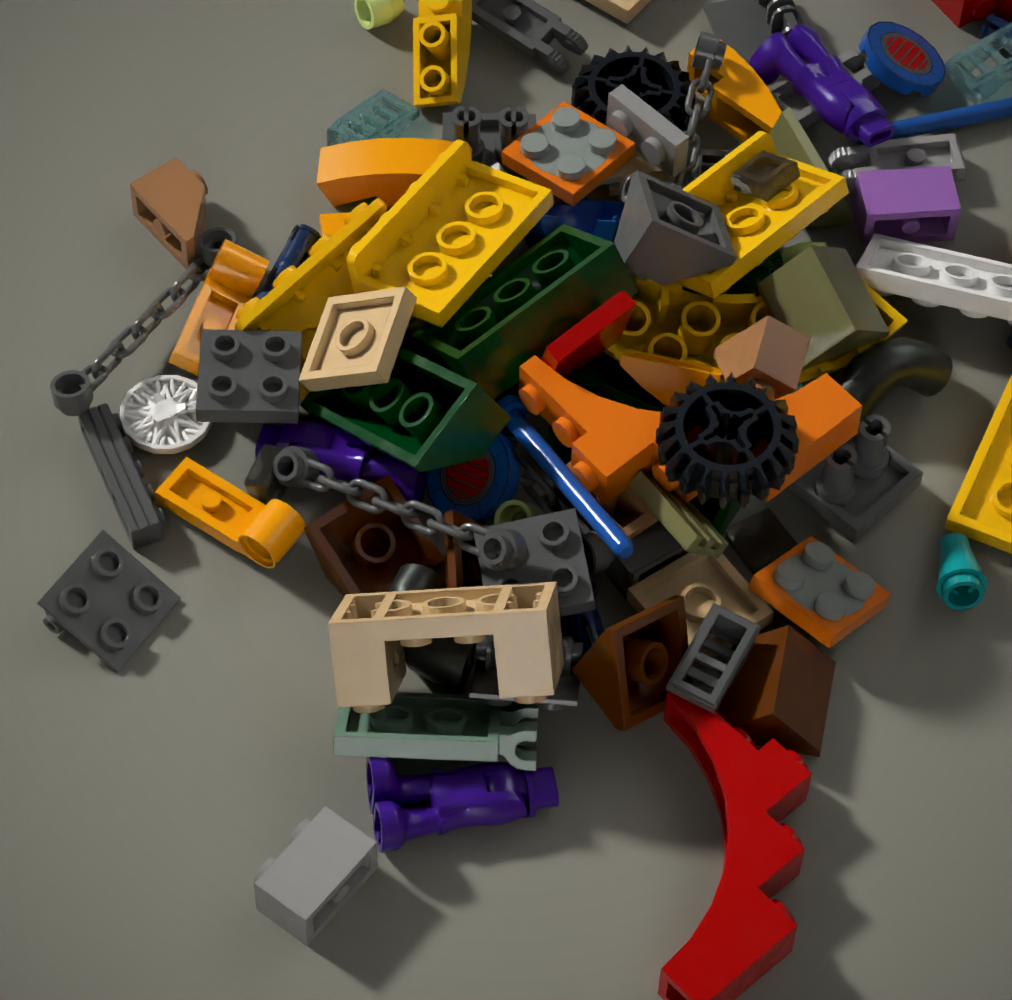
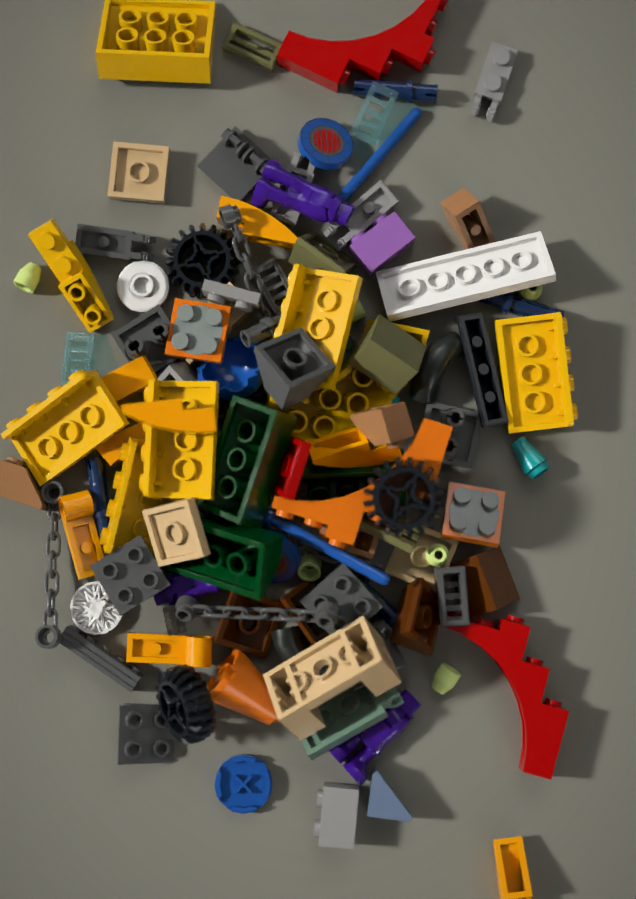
camera: 30 degrees left, 30 degrees up
(200, 576) = (185, 704): none -> black gear
(201, 757) = (243, 783): none -> blue tile
(292, 608) = (242, 688): none -> orange cone
(299, 162) = (66, 425): none -> yellow bracket
(400, 897) = (384, 801): none -> sand blue slope
(459, 179) = (171, 417): none -> light orange slope
(528, 85) = (142, 286): none -> white wheel
(623, 789) = (445, 678): none -> yellowish green hose
(729, 593) = (430, 558): none -> yellowish green hose
(765, 175) = (313, 293): clear smoke tile -> none
(955, 420) = (482, 370): none -> black slope

